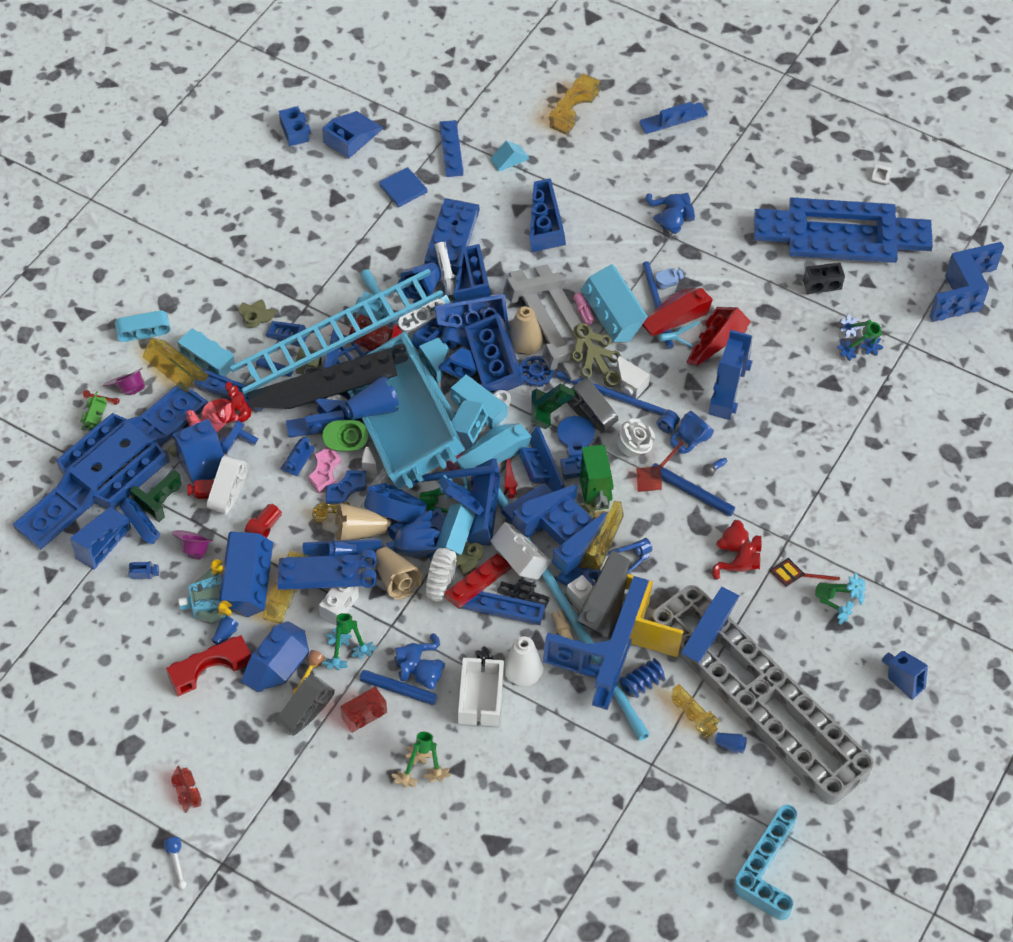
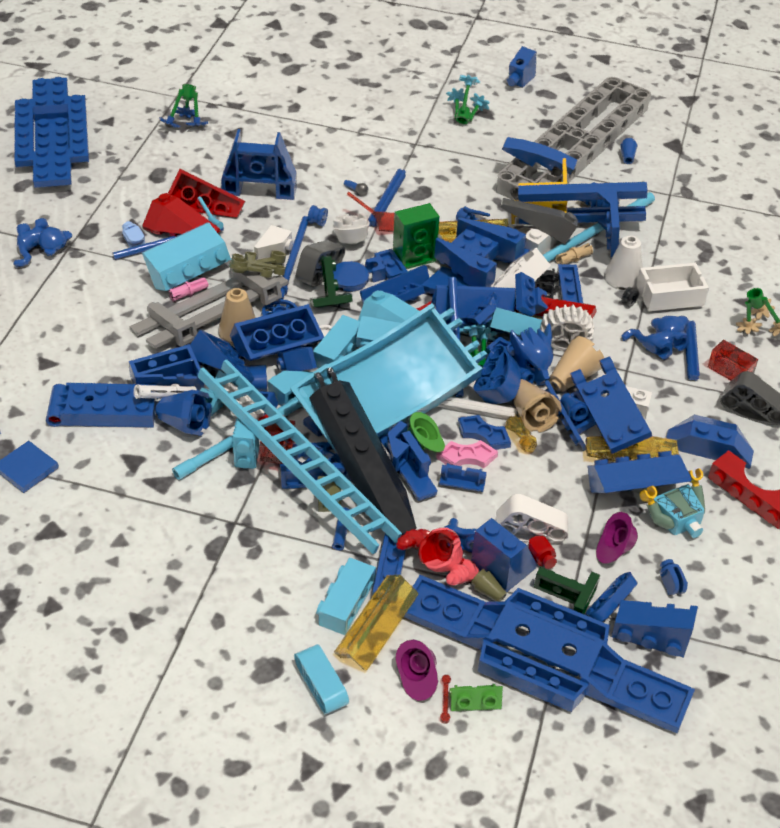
camera: 105 degrees left, 10 degrees down
(225, 630) = (711, 489): blue cone -> none
(256, 312) = (264, 566): olive plate -> none
(264, 521) = (569, 487): red piece -> none
(289, 327) = (291, 512): blue slope -> none
(315, 660) = (699, 409): nougat hinge -> none
(340, 636) = (666, 376): plant -> none
(368, 462) = (447, 415): white slope -> none
(372, 400) = (386, 398): blue cone -> none
(481, 544) = (527, 296): none -> blue plate
(545, 221) = (65, 327): blue wedge -> none
(692, 431) = (327, 196): blue piece -> none
(705, 721) = (615, 168): clear yellow plate -> none
(737, 540) = (439, 157): red animal -> none
(763, 860) = (716, 126): medium azure beam -> none
(789, 572) = (448, 139): piece -> none
(823, 278) = (117, 135): black brick -> none
(966, 281) = (108, 57): blue bracket -> none

